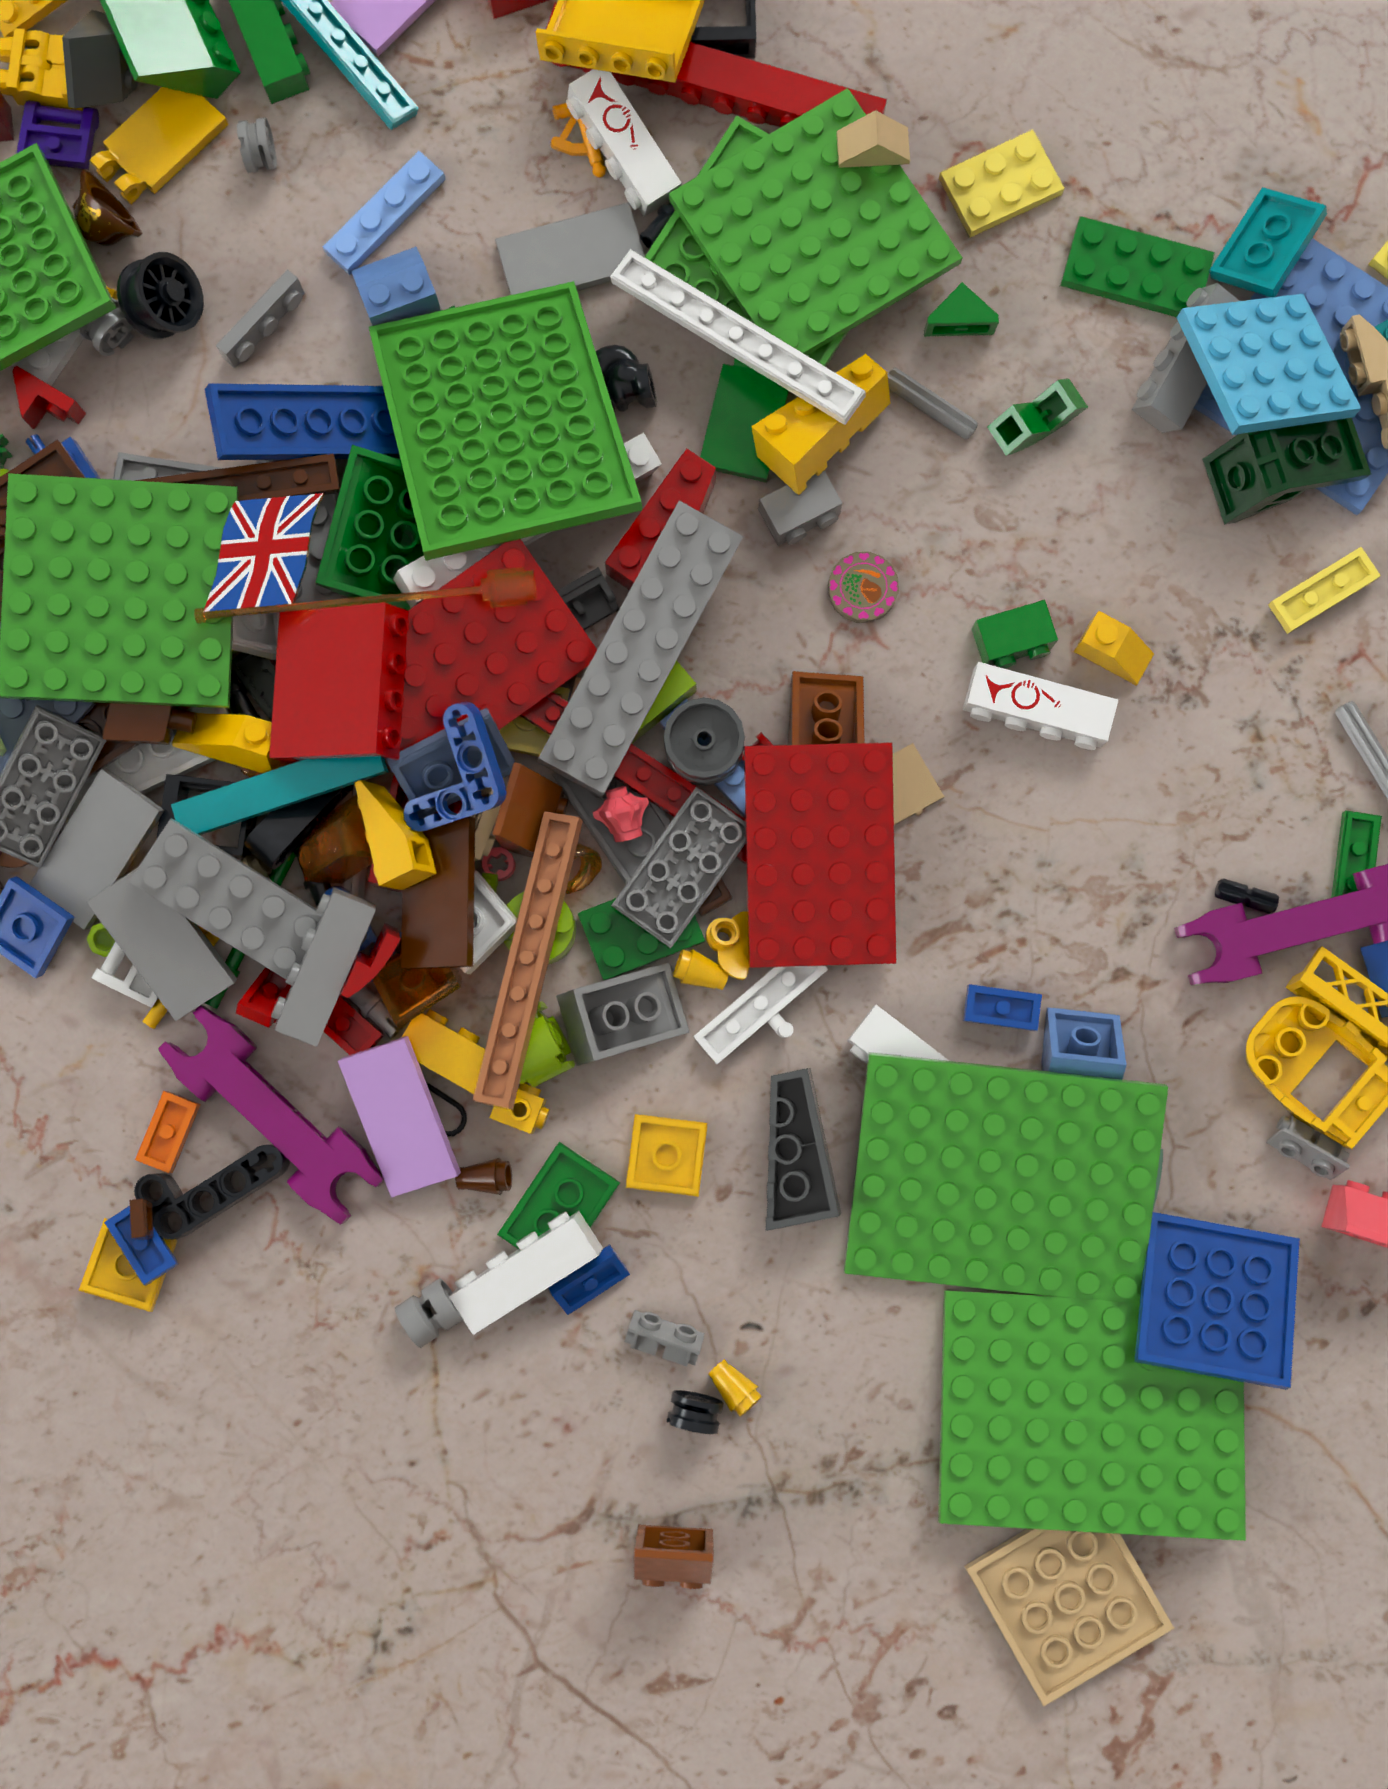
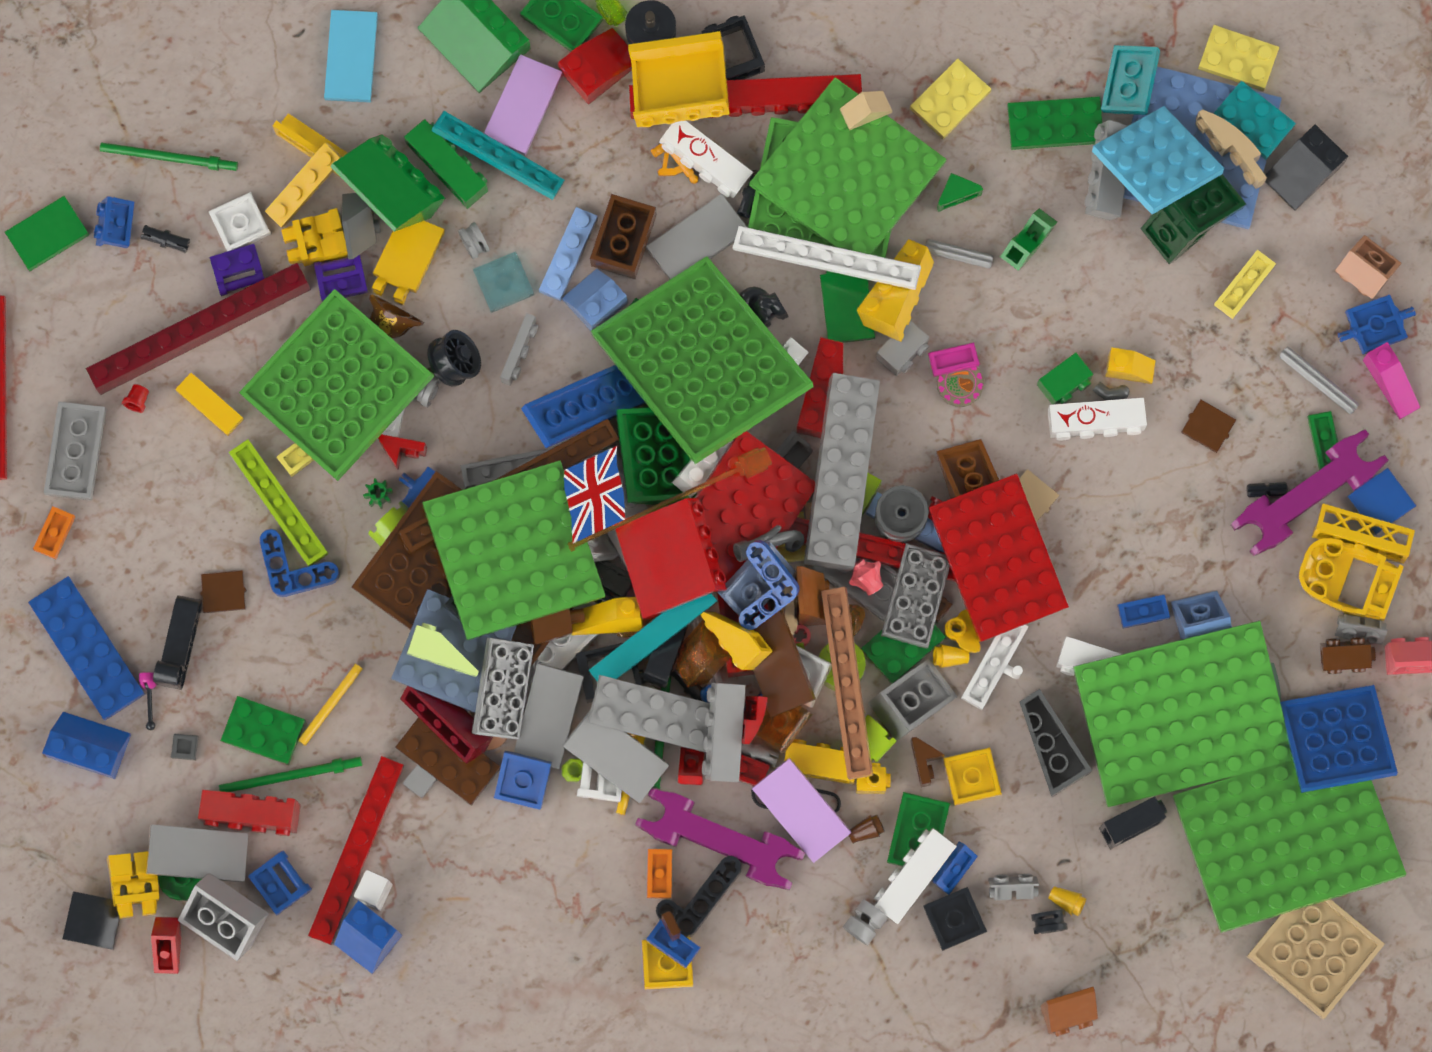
camera: 20 degrees left, 5 degrees down
(279, 220) = (503, 282): none -> clear light blue plate
(465, 211) = (623, 236): none -> reddish brown brick
(502, 712) = (792, 539): none -> dark grey plant
(561, 1354) = (954, 919): none -> black plate
(605, 1097) = (922, 754): none -> reddish brown slope
(866, 549) = (953, 359): none -> dark pink tile
(872, 1313) = (1133, 822): none -> black window
(1078, 679) = (1111, 394): none -> dark grey arm
(1195, 774) = (1208, 426): none -> reddish brown piece
(1273, 1180) = (1346, 655): none -> reddish brown brick

